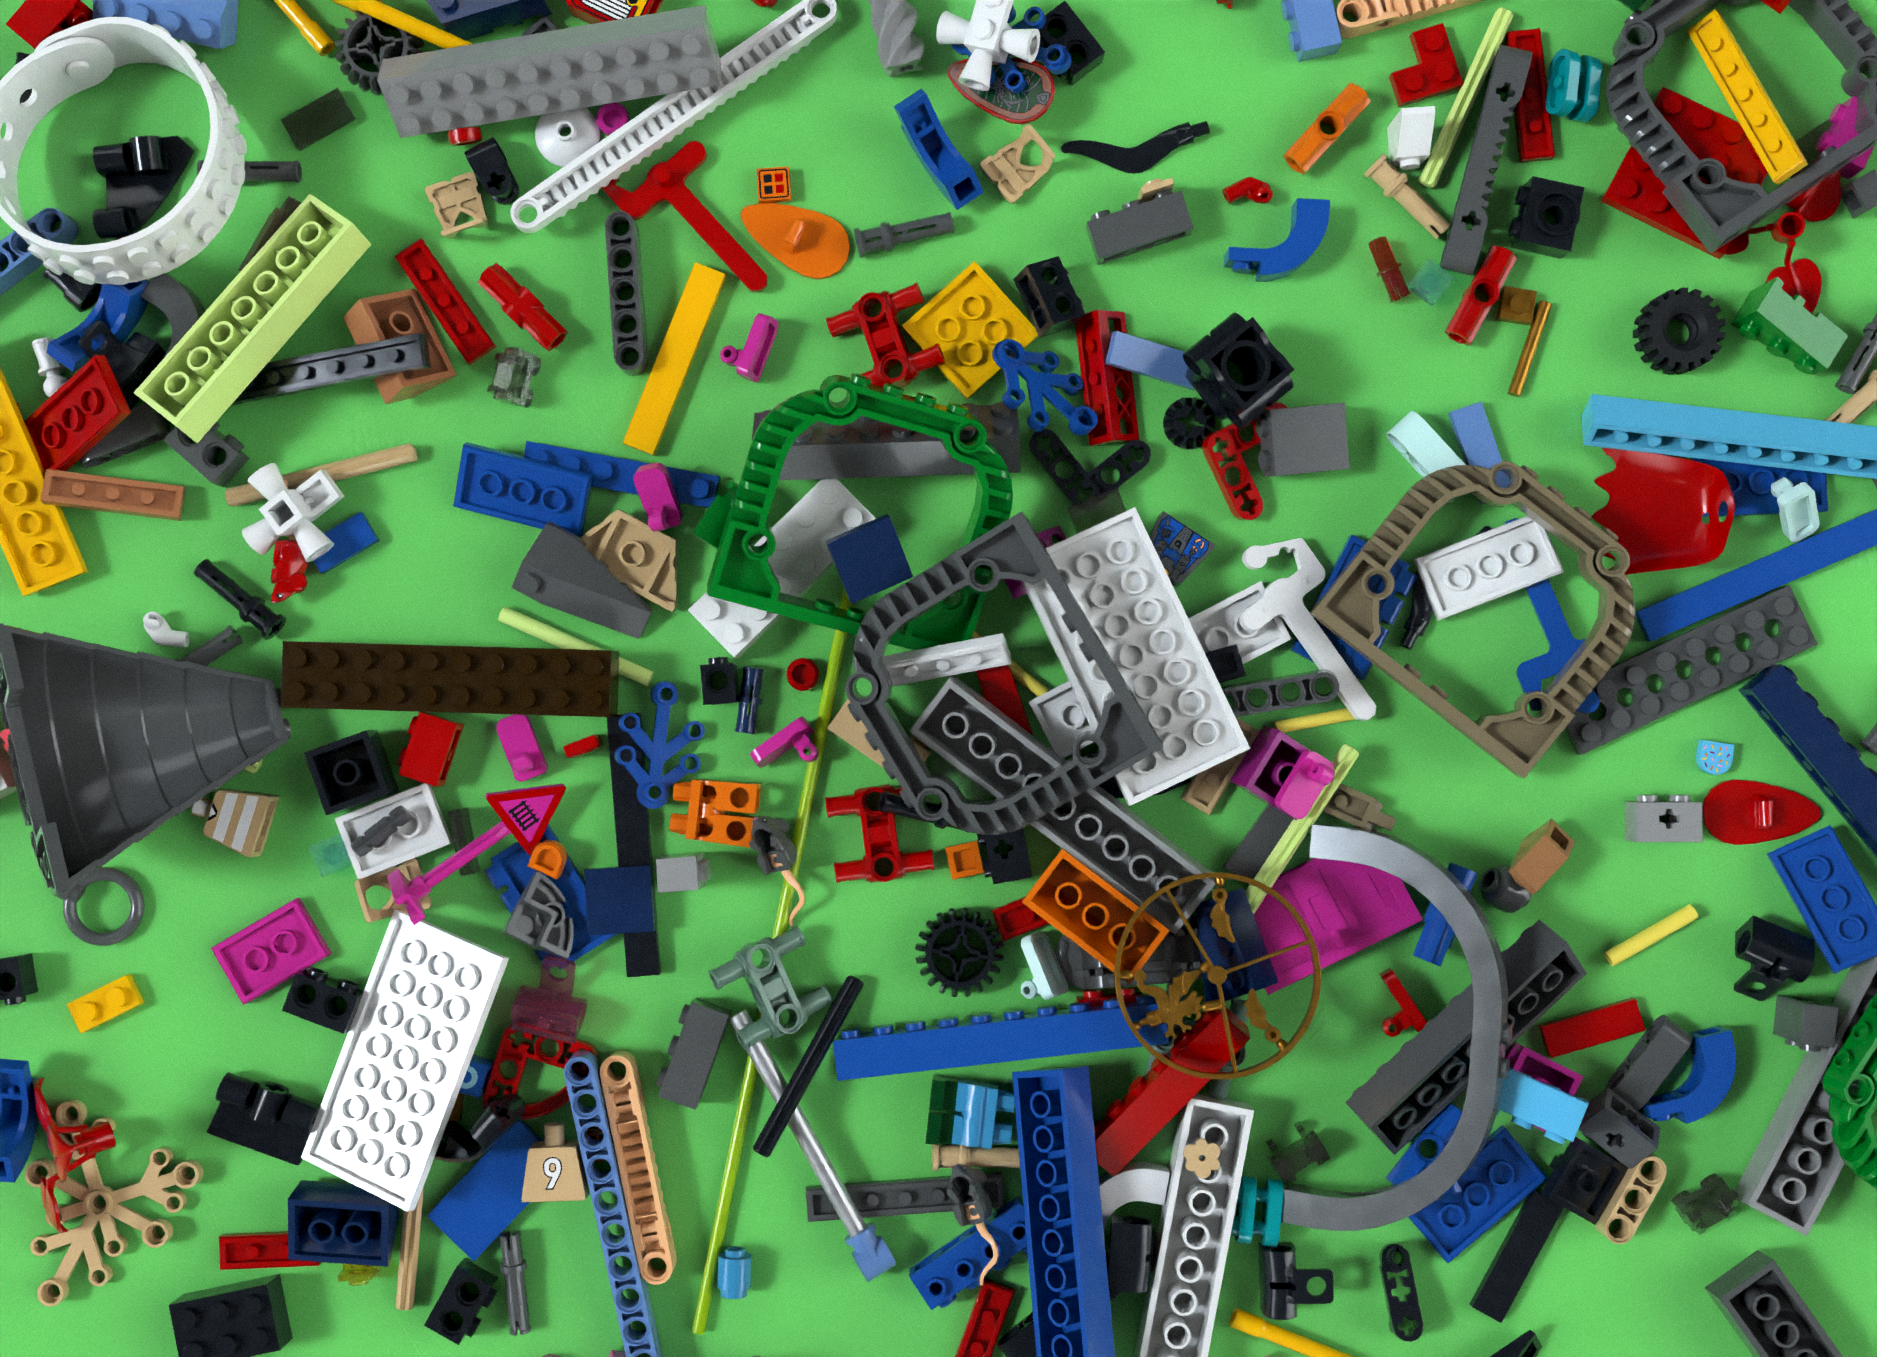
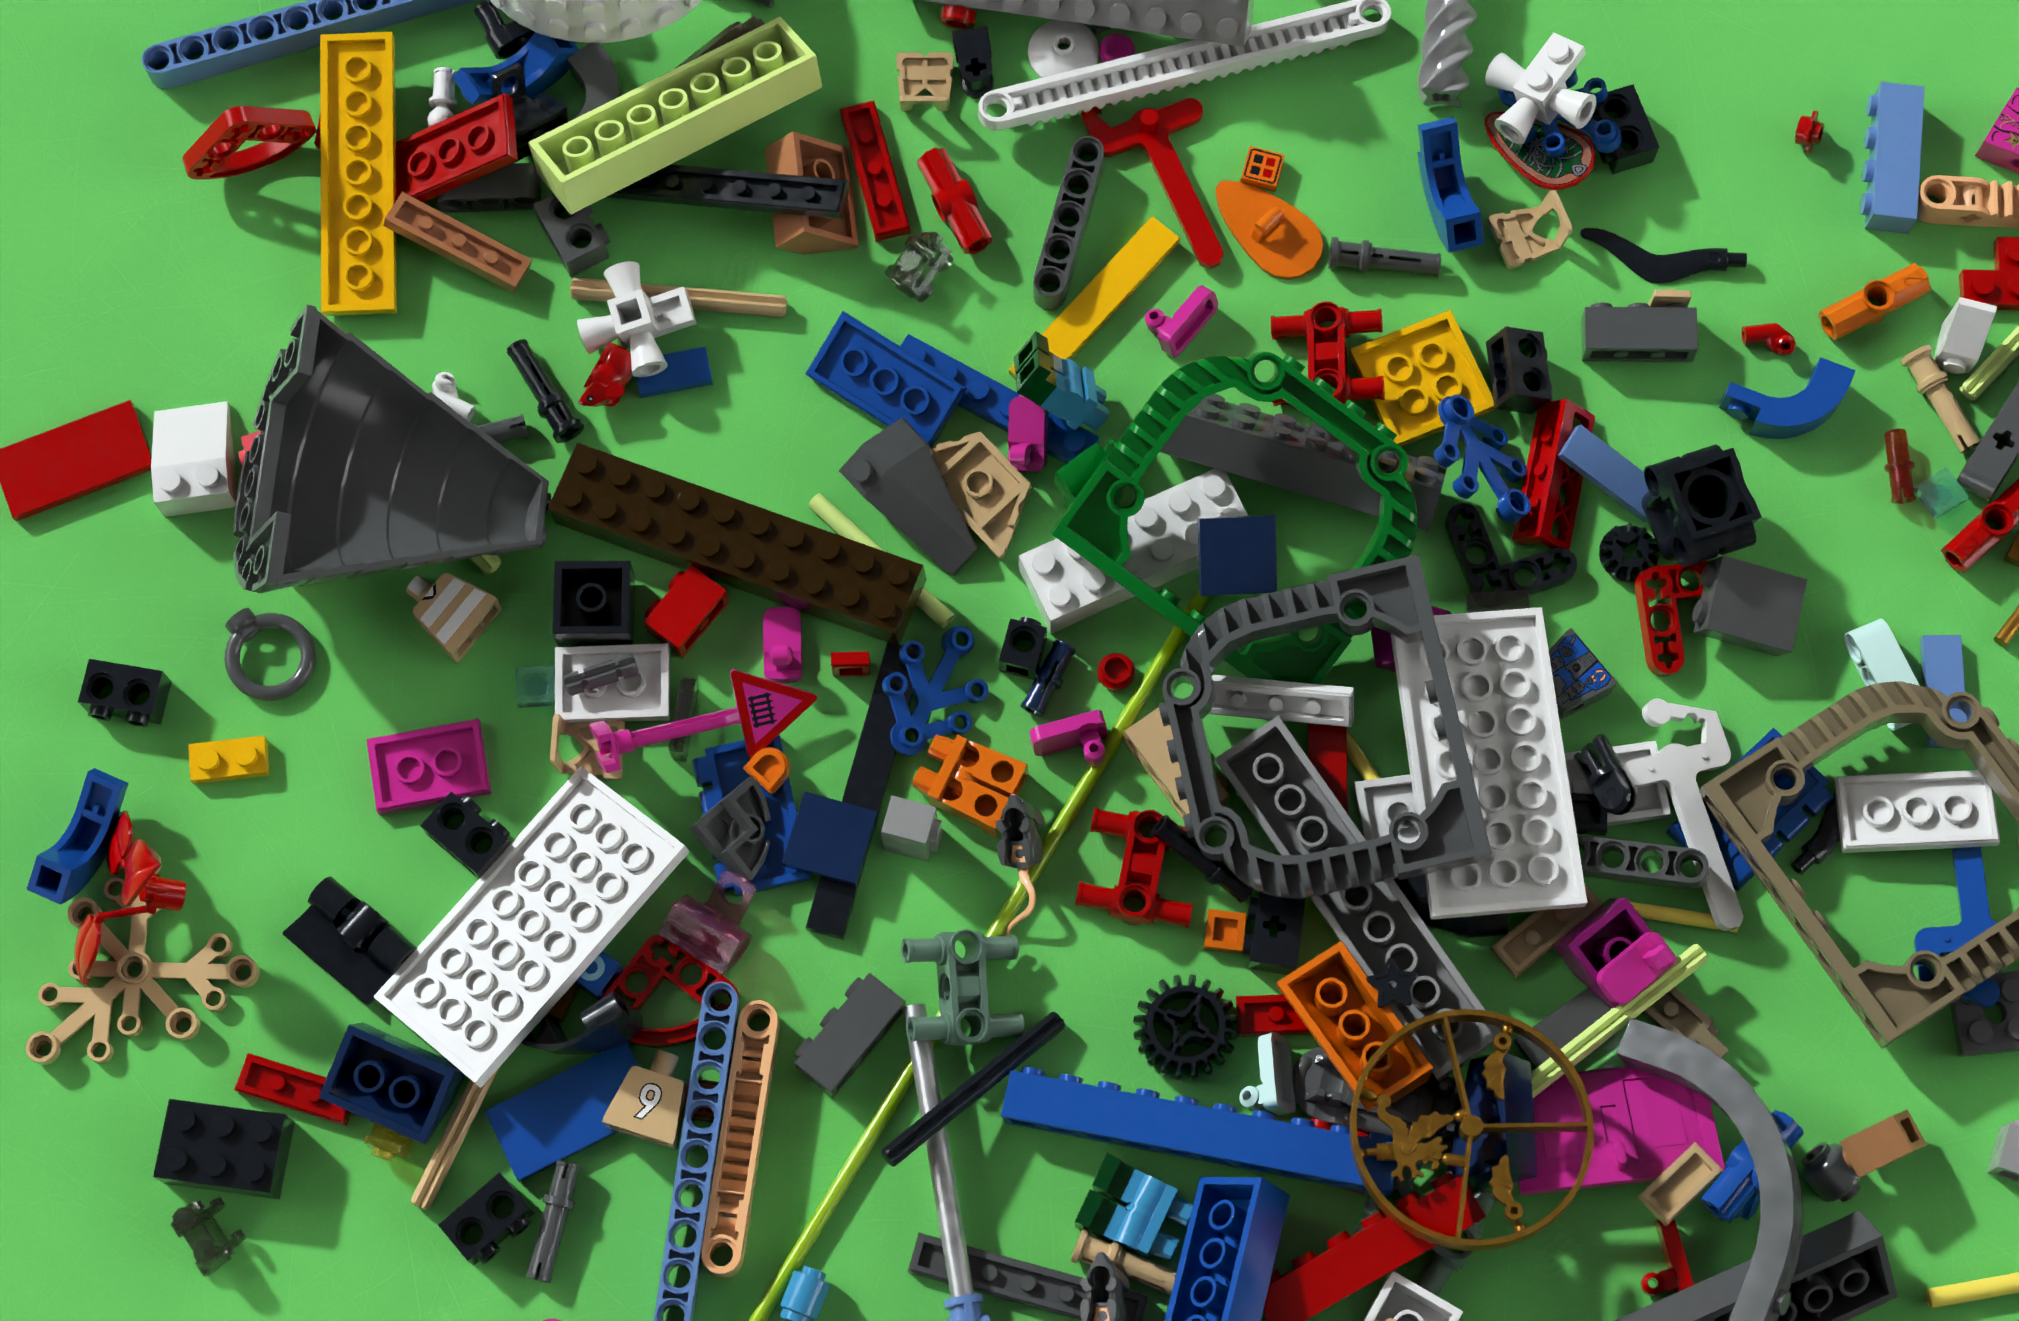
camera: 20 degrees right, 15 degrees down
(669, 448) = (1059, 385): none -> hips
(1115, 864) = (1403, 981): none -> black plate
(1232, 632) = (1606, 776): none -> black arm
(1392, 945) = (1680, 1184): none -> tan tile

